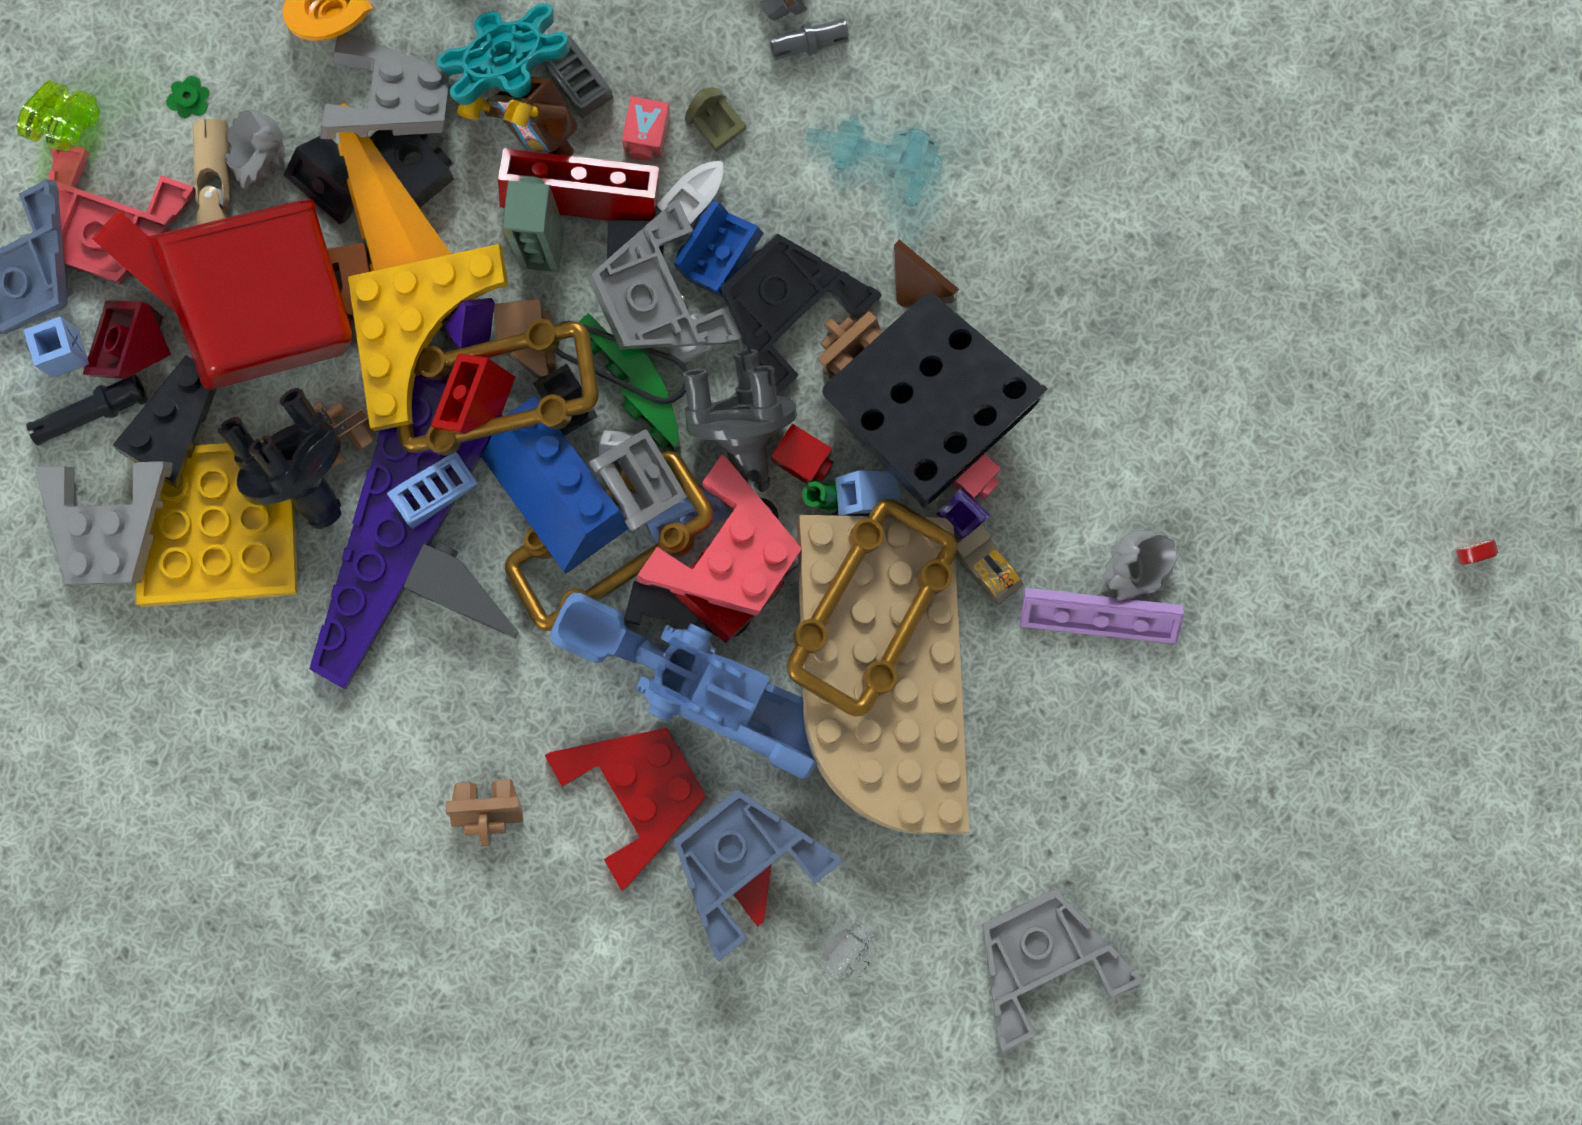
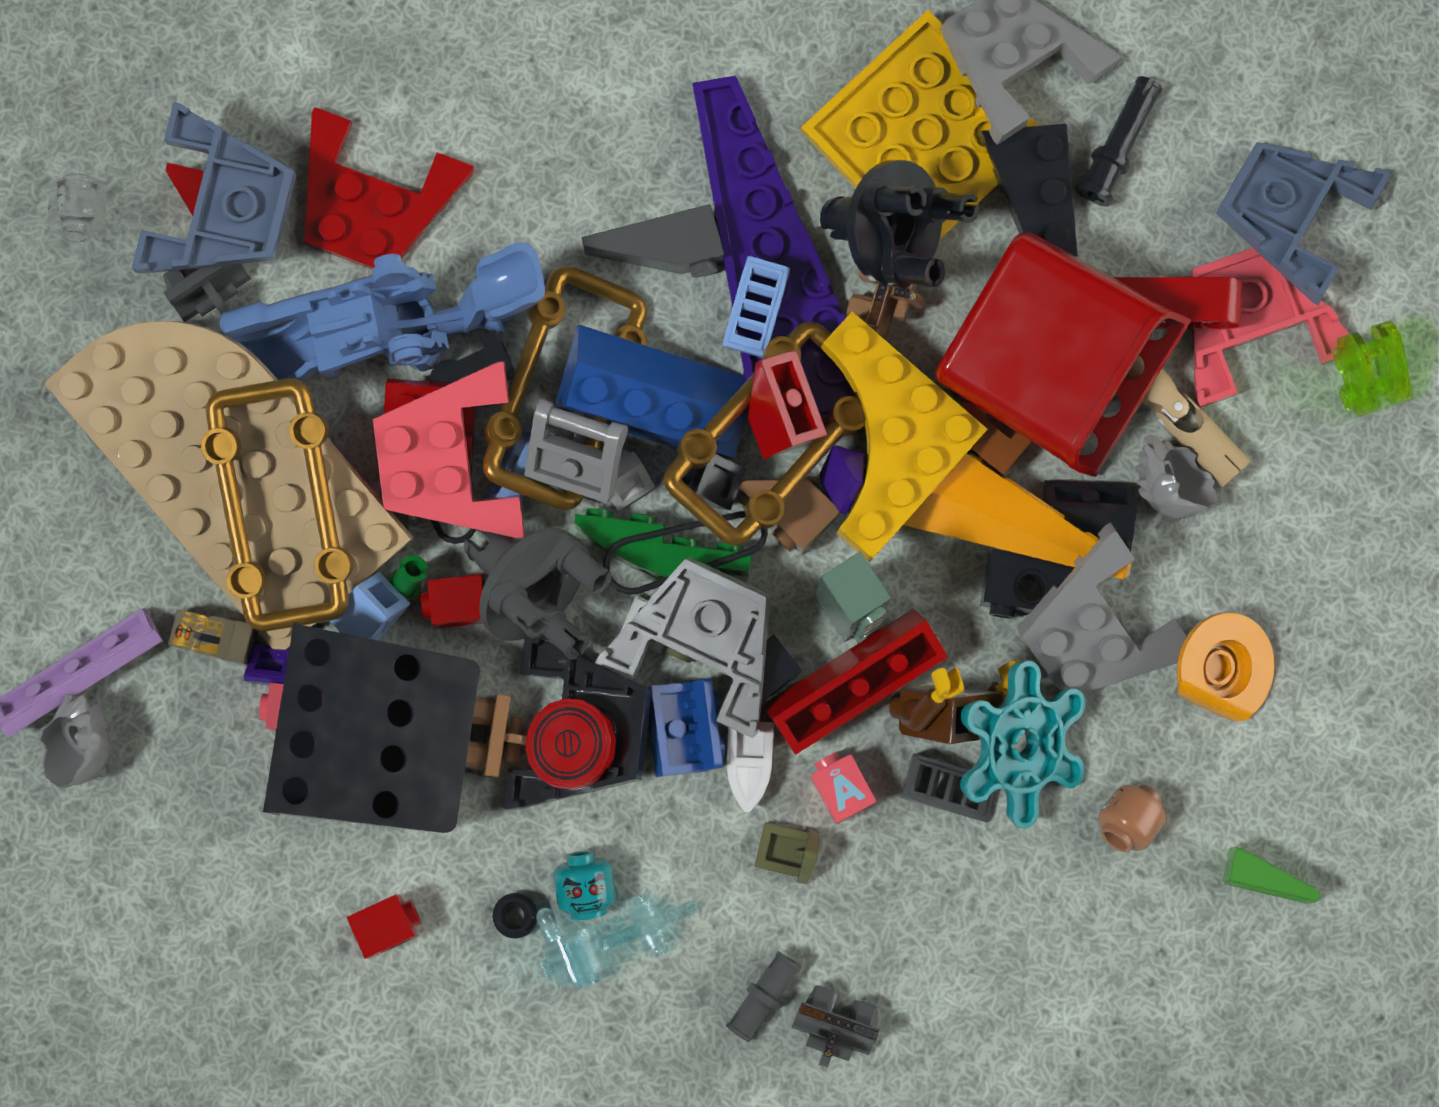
camera: 140 degrees right, 0 degrees up
(56, 347) = (1191, 168): light blue brick -> none
(126, 340) = (1137, 222): dark red slope -> none
(194, 104) = (1273, 496): green plant -> none
(484, 815) = (502, 68): medium nougat hips -> none
(803, 293) = (570, 744): none -> red tile
(806, 815) = (203, 289): none -> dark grey hips
(869, 199) = (584, 885): none -> teal head
(917, 277) = (480, 845): reddish brown slope -> none
(930, 208) = (500, 915): none -> black plate
(1023, 278) = (384, 925): none -> red brick

